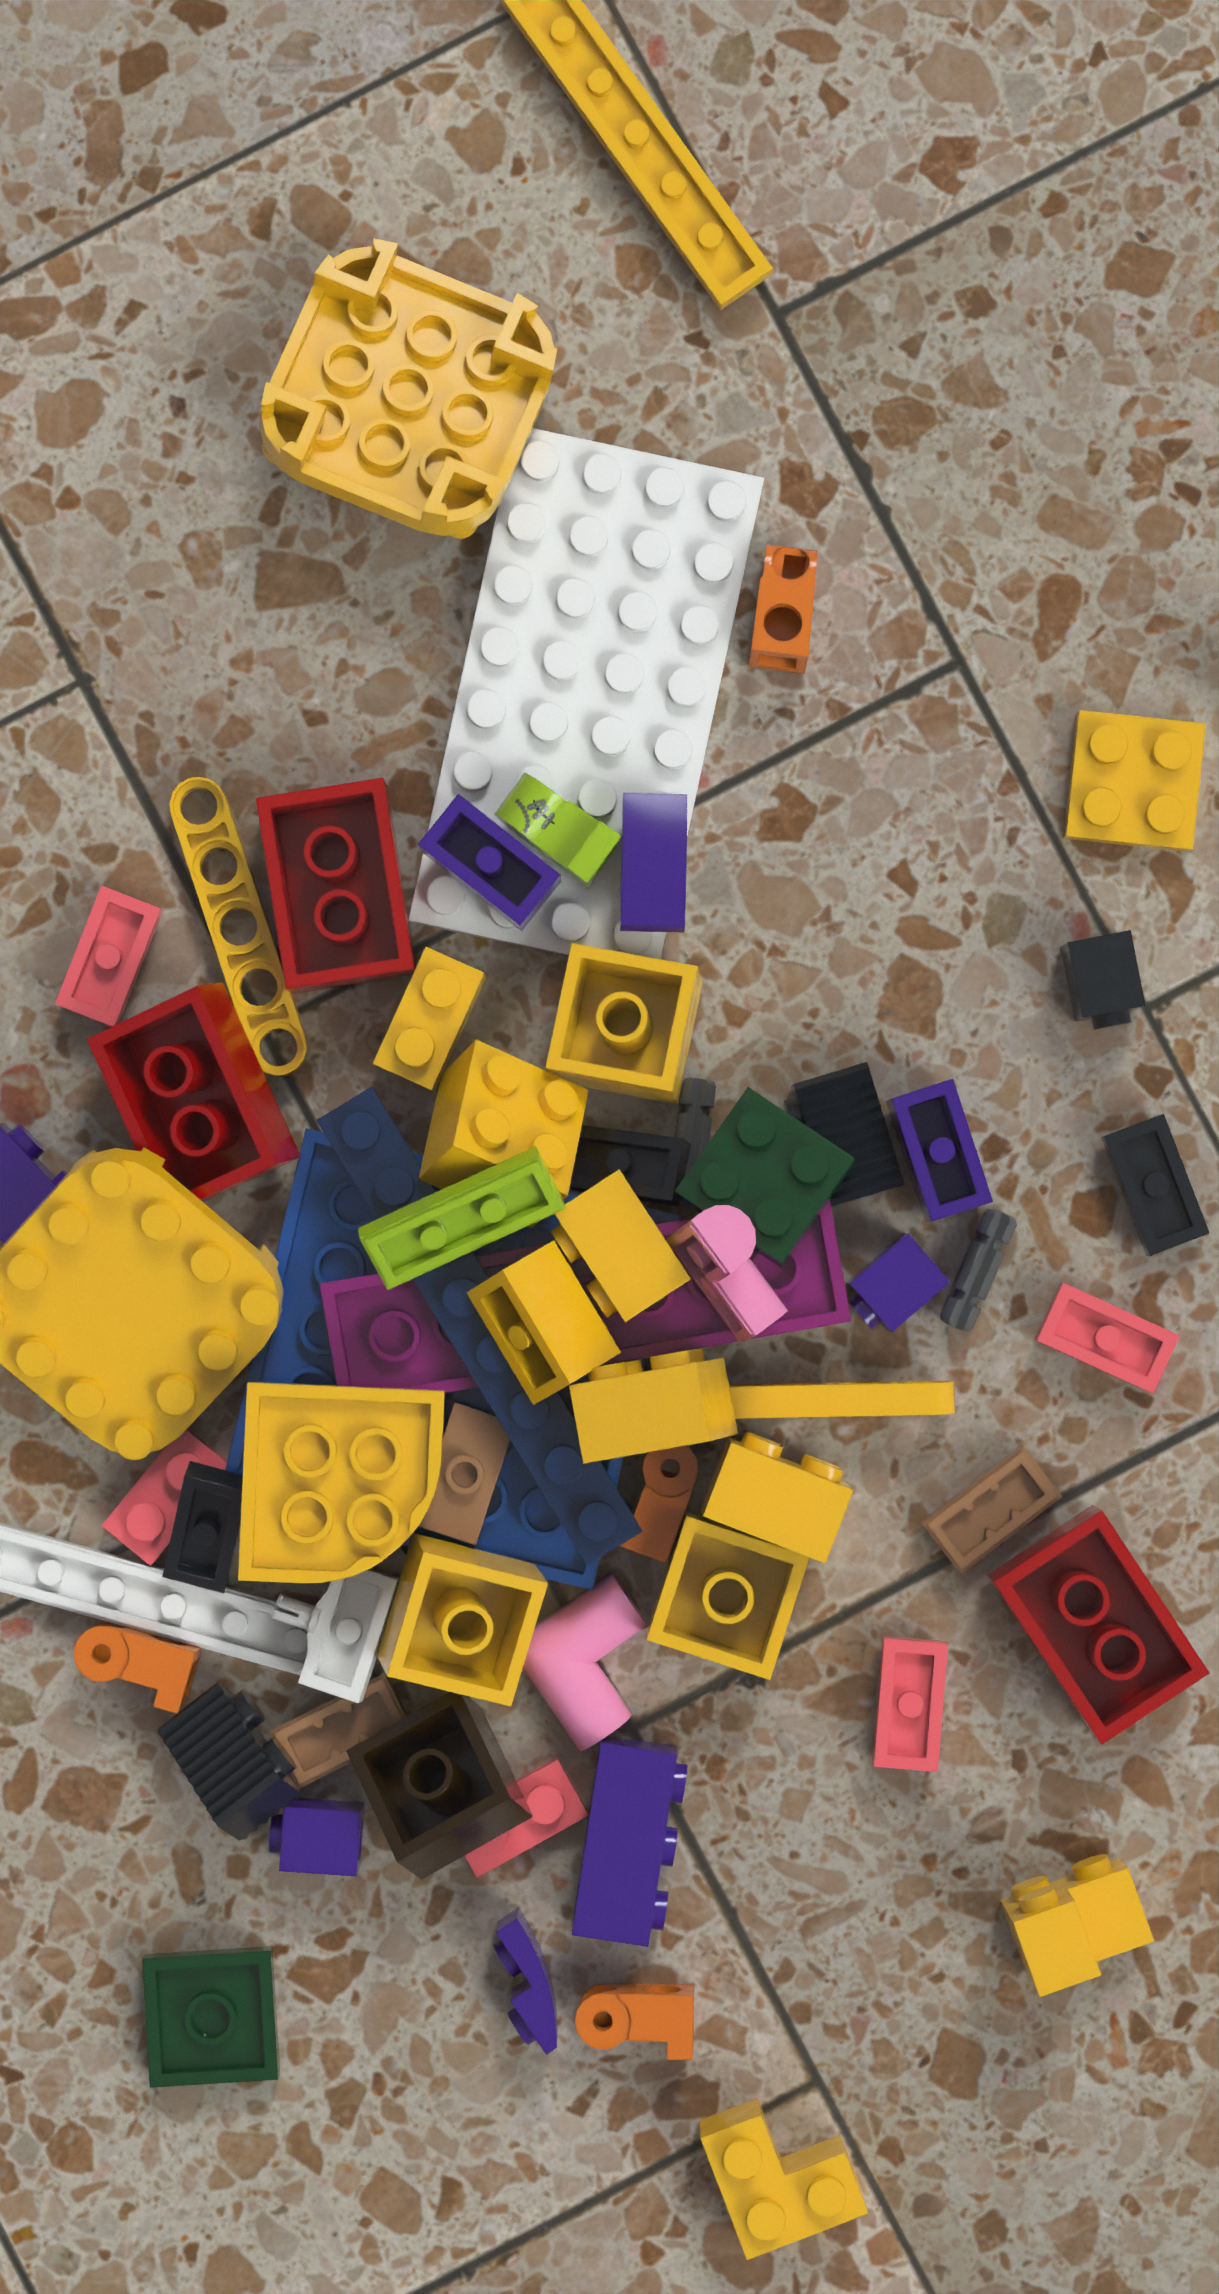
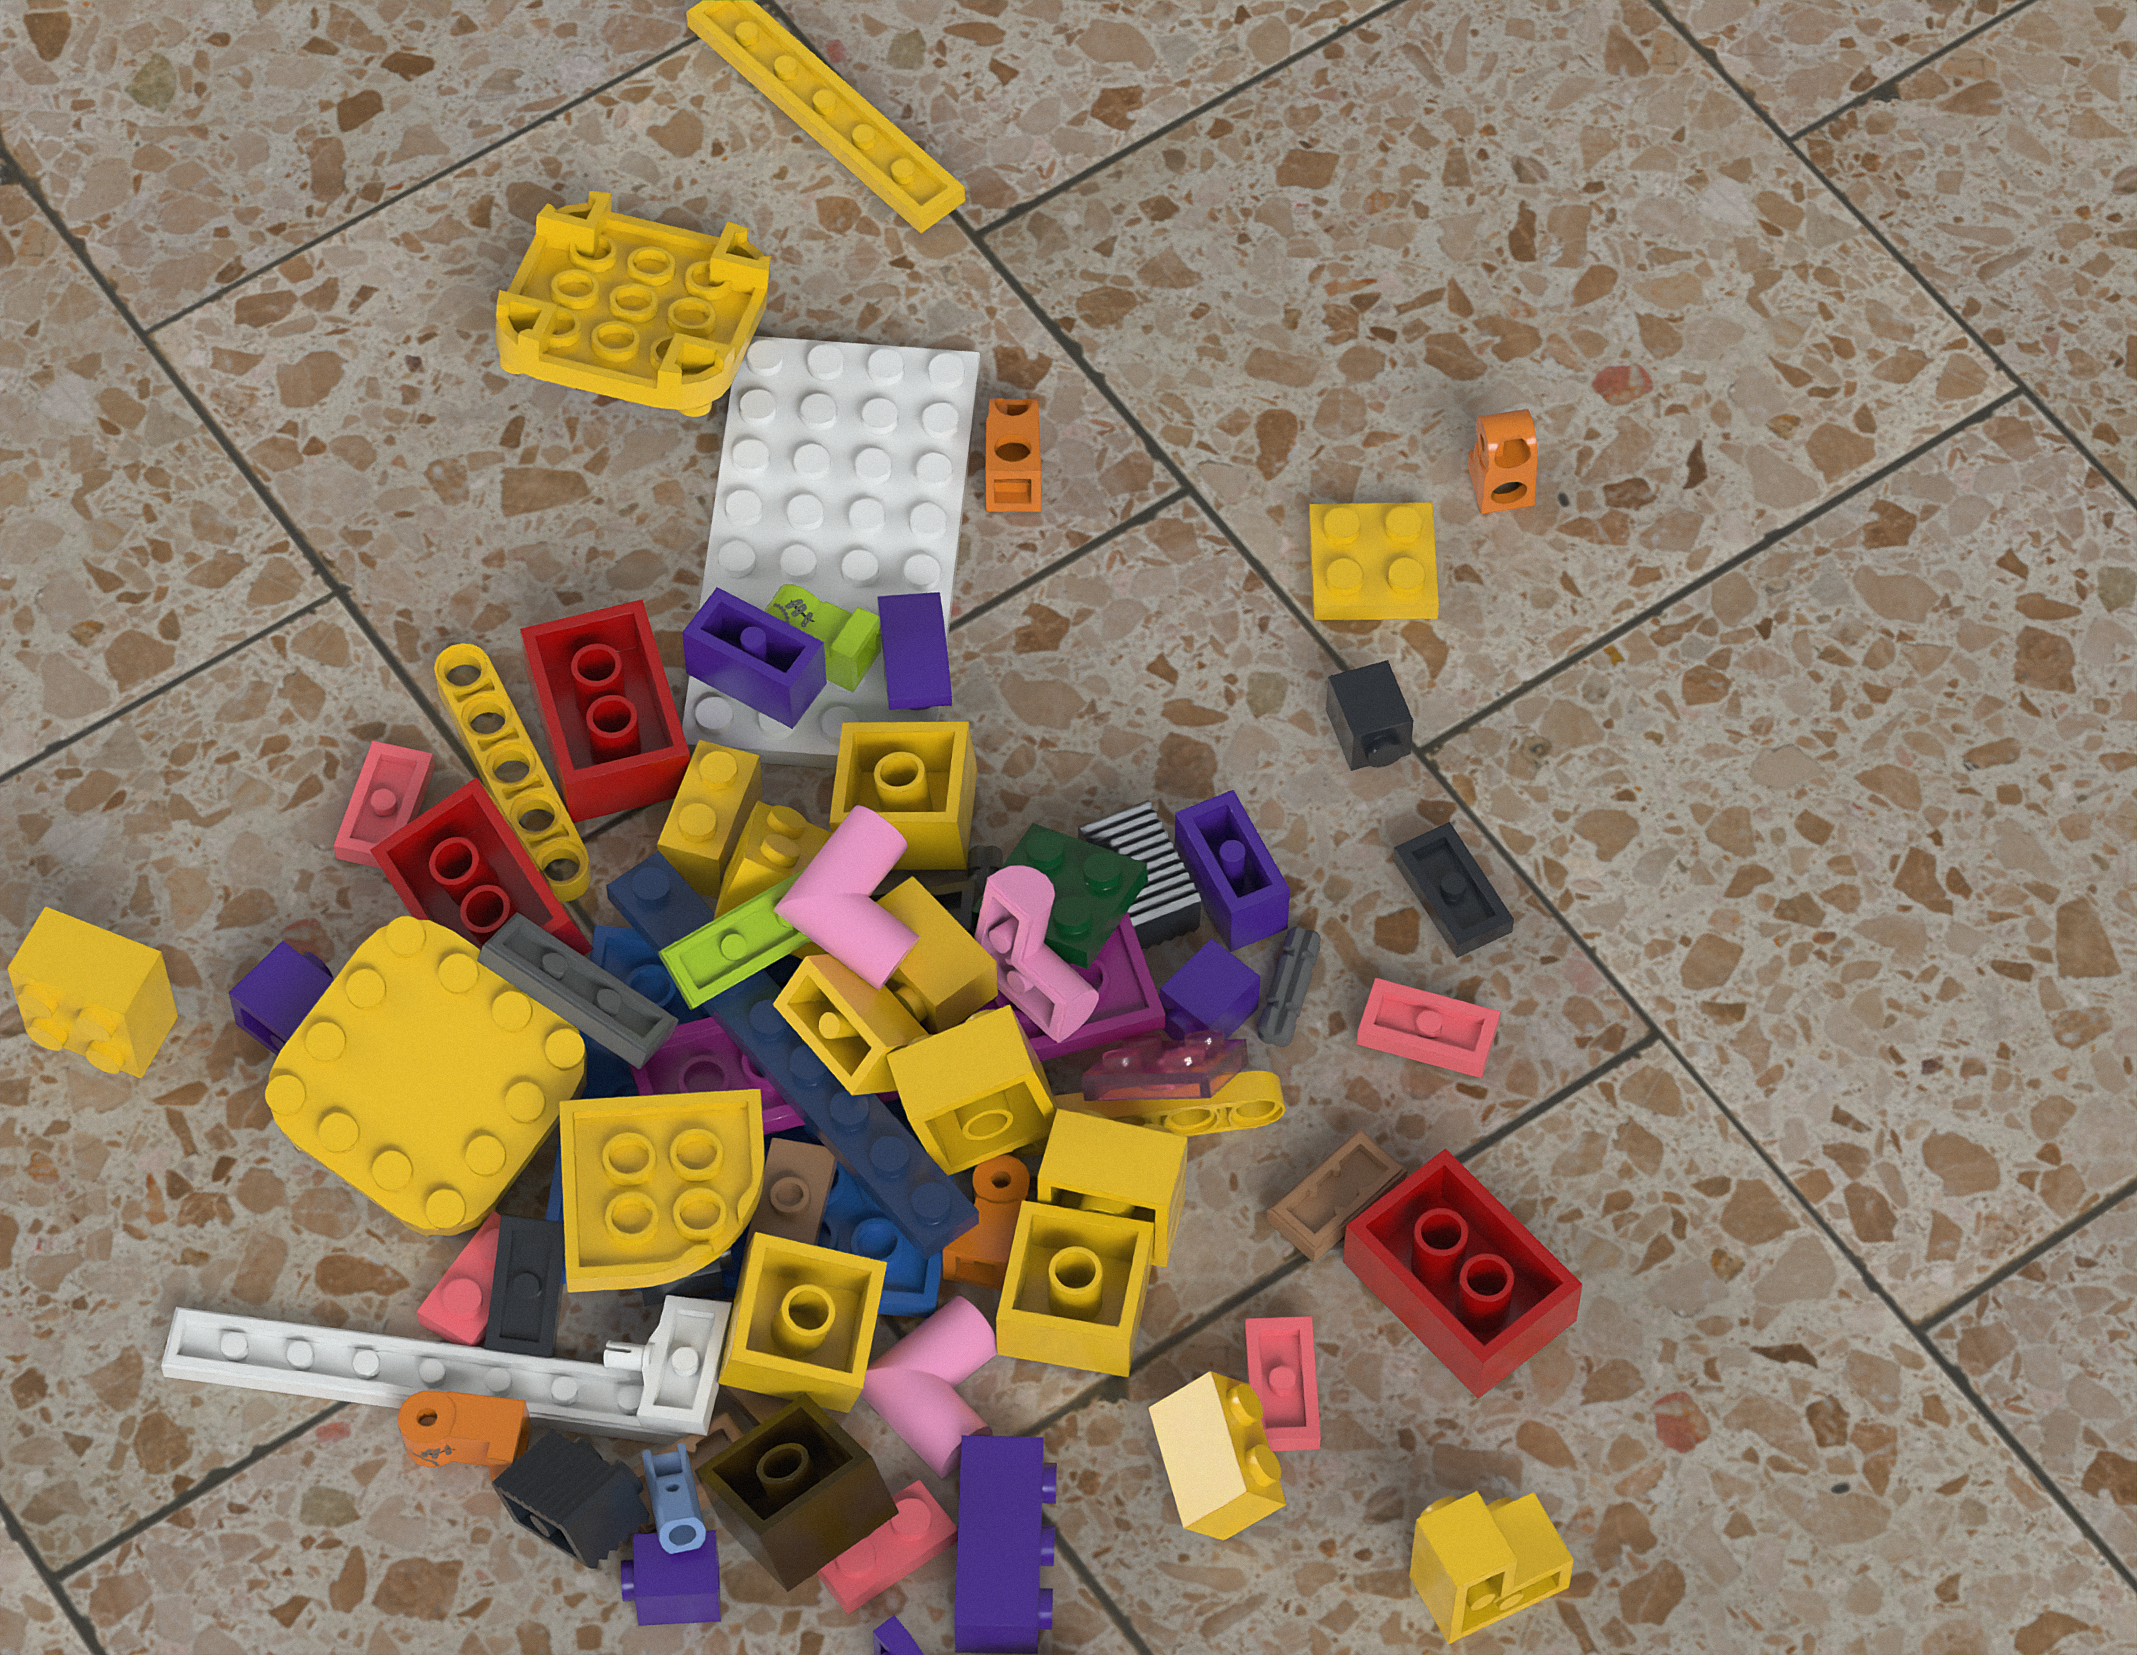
camera: 10 degrees left, 30 degrees down
(277, 1245) = (577, 990): none -> dark grey tile
(324, 1784) = (674, 1500): none -> medium blue bar
(537, 1214) = (834, 903): none -> bright pink brick
(838, 1785) = (1217, 1455): none -> yellow brick
(844, 1381) = (1158, 1069): none -> clear pink plate

